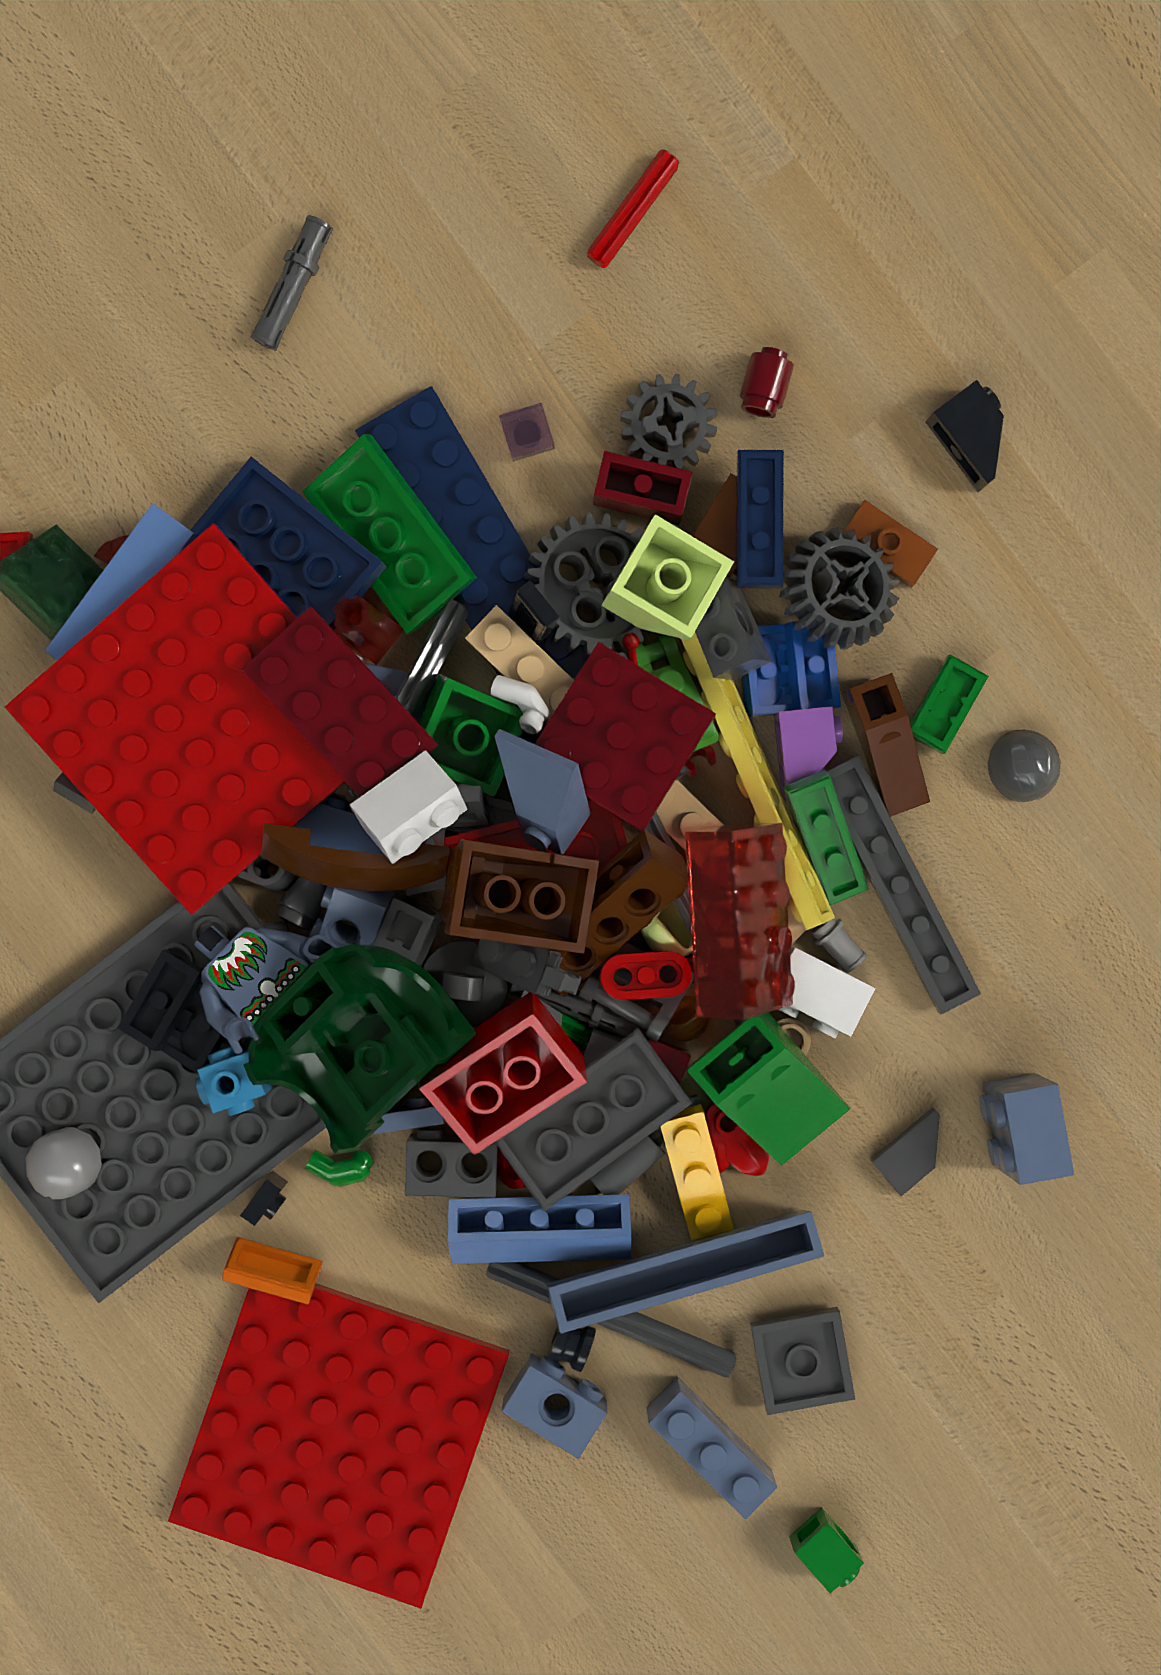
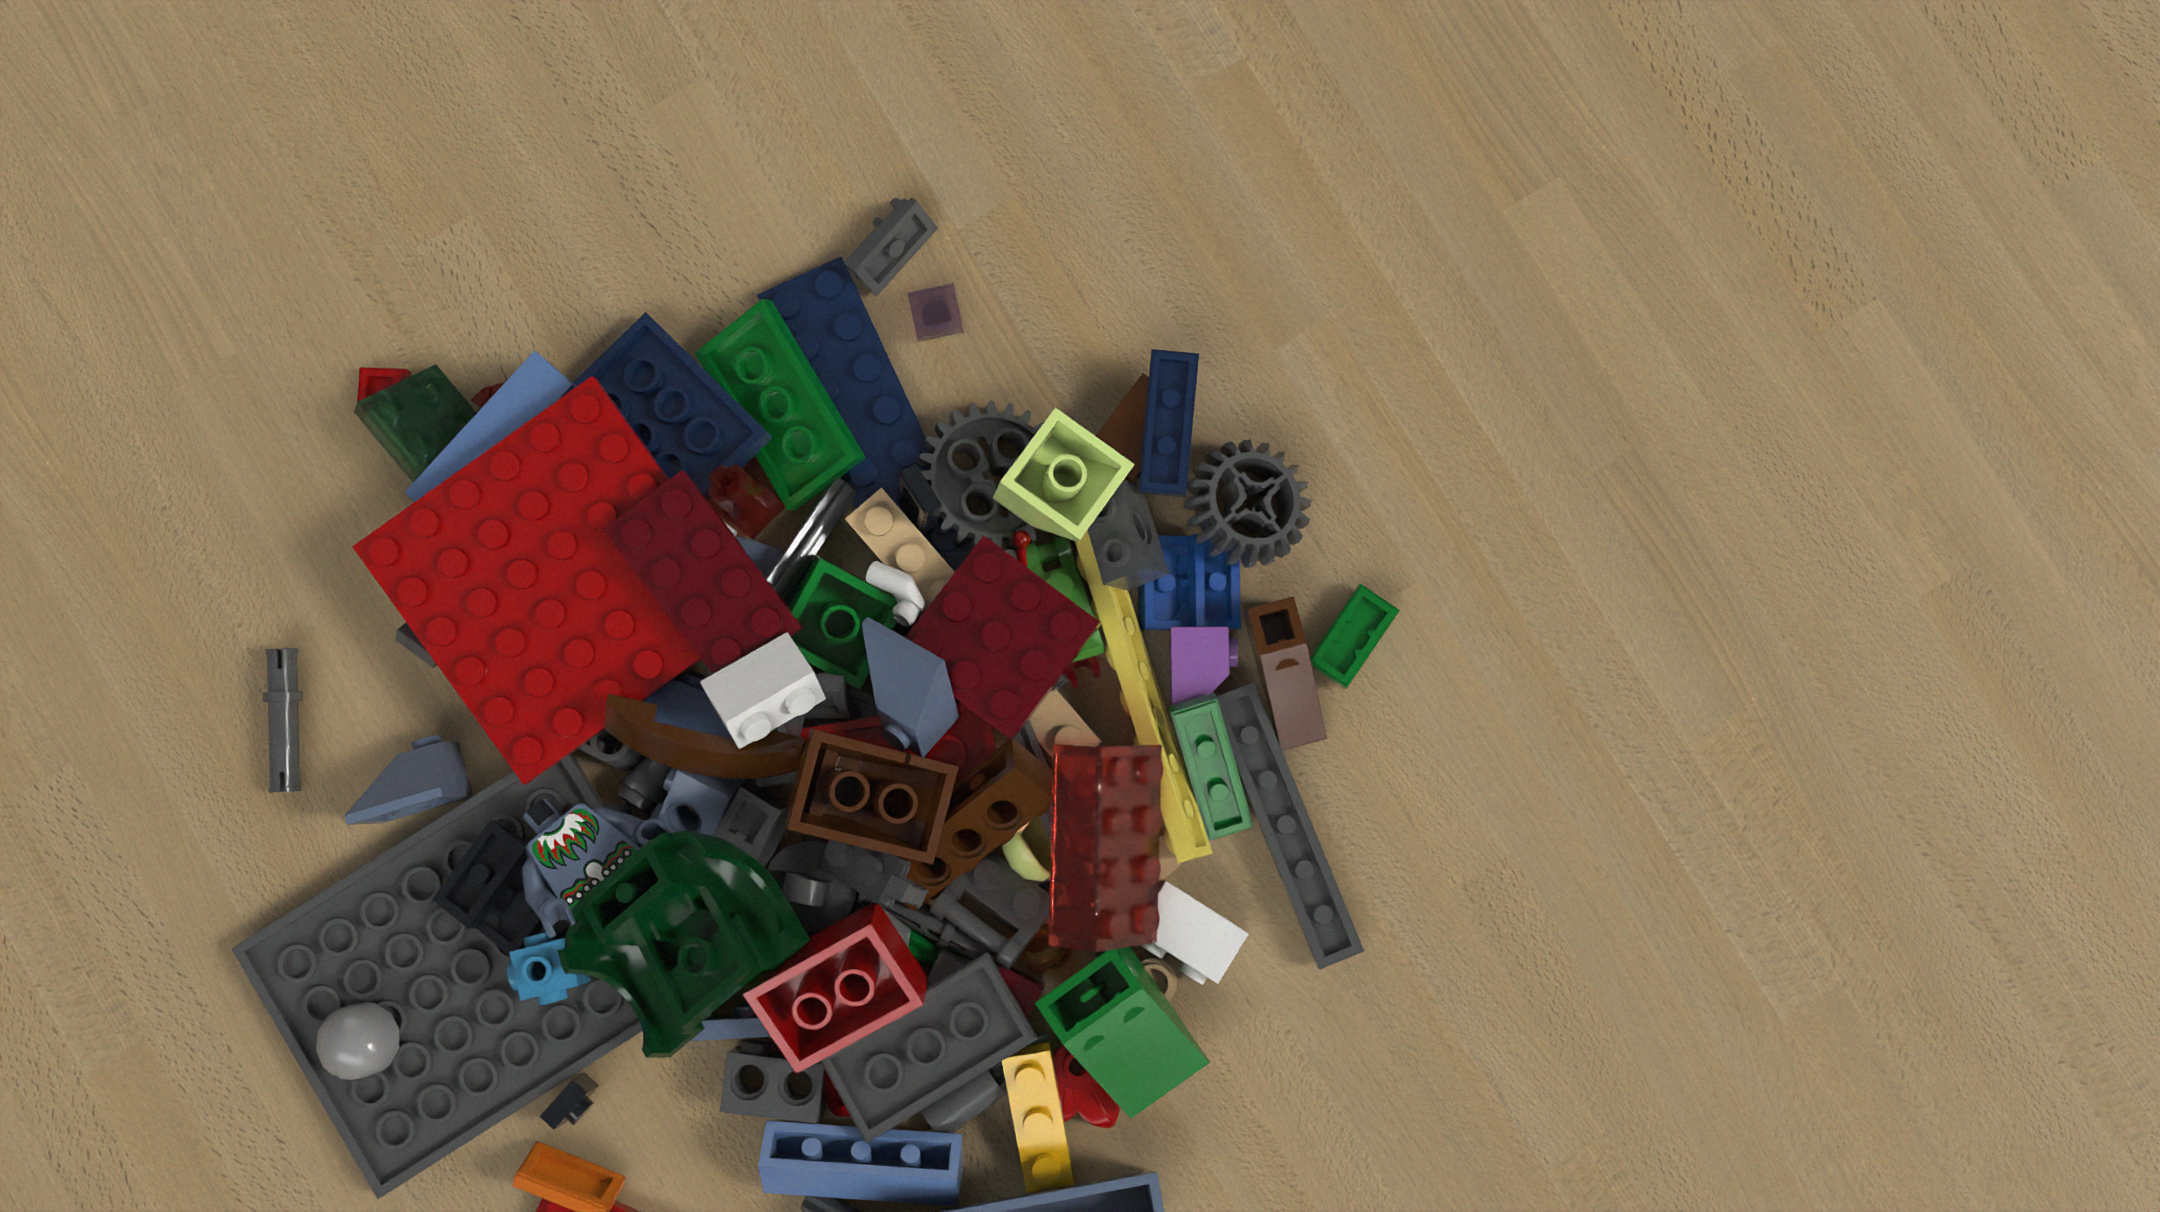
camera: 10 degrees right, 5 degrees down
(86, 921) = (414, 783): none -> sand blue slope
(299, 267) = (713, 131): dark grey pin -> none
(341, 1172) = (657, 1080): green arm -> none
(477, 370) = (890, 244): none -> dark grey plate
(633, 208) = (1069, 95): red axle -> none
(641, 487) = (1048, 380): dark red brick -> none
(644, 975) = (1001, 895): red plate -> none
(687, 417) = (1066, 318): dark grey gear -> none
(766, 382) = (1190, 283): dark red brick -> none
(839, 944) = (1215, 883): light grey pin -> none
(902, 546) = (1318, 465): dark orange plate -> none
(910, 1154) = (1274, 1120): dark grey tile -> none
(971, 432) = (1401, 352): black slope -> none
(1024, 765) = (1431, 709): dark grey piece -> none
(1026, 1128) = (1400, 1103): sand blue brick -> none

